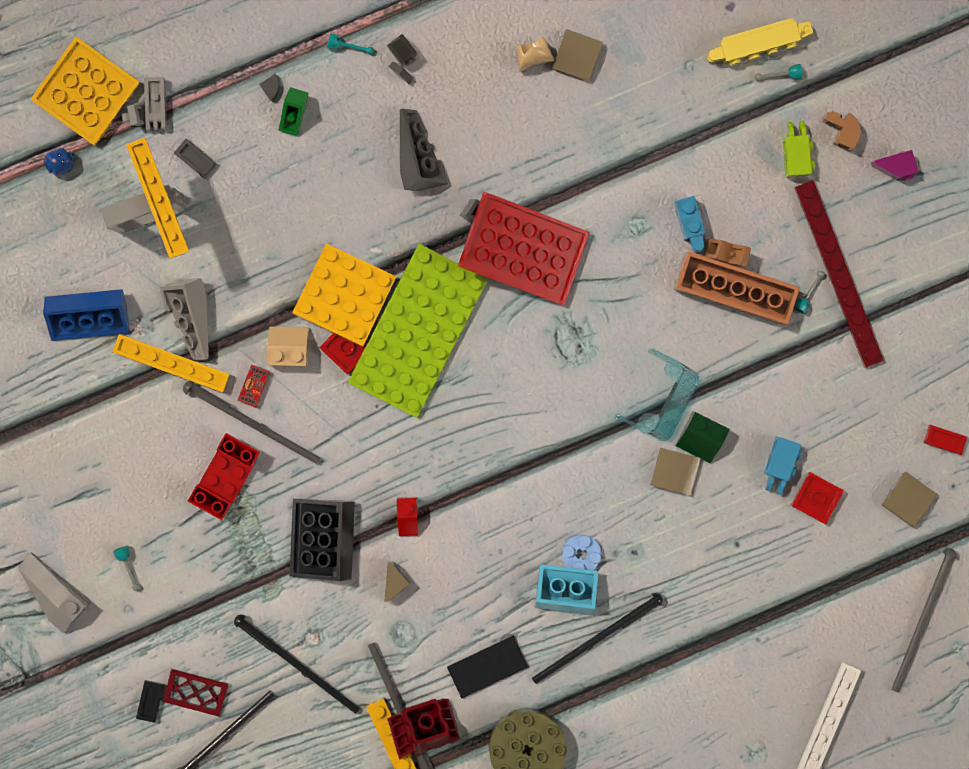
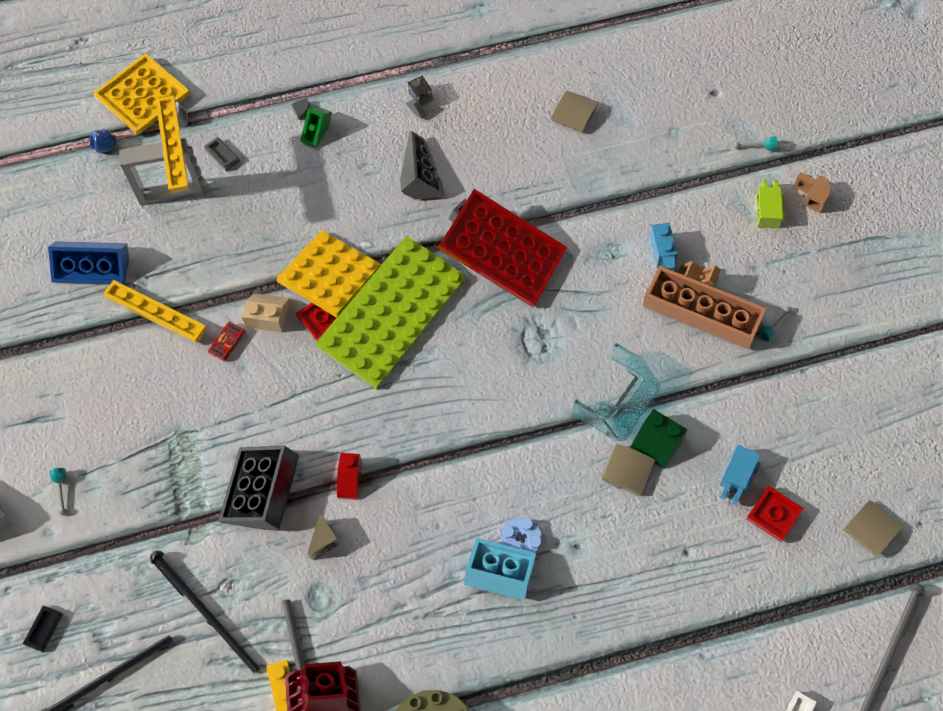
camera: 15 degrees right, 25 degrees down
(155, 102) = (198, 108): light grey hinge -> none
(183, 703) = (92, 643): dark red window -> none
(189, 307) = (182, 262): light grey wedge -> none
(190, 387) = (191, 352): dark grey bar -> none
(224, 476) = (180, 415): red slope -> none
(335, 42) = (363, 81): teal hinge -> none
(487, 666) = (404, 643): black piece -> none
(533, 54) = (535, 105): tan hair -> none
(656, 600) = (556, 615): black bar -> none
(759, 40) = (739, 116): light yellow hinge -> none
(838, 274) = (806, 314): dark red plate -> none
(897, 165) = (864, 224): magenta slope -> none
(945, 439) = (912, 475): red tile -> none

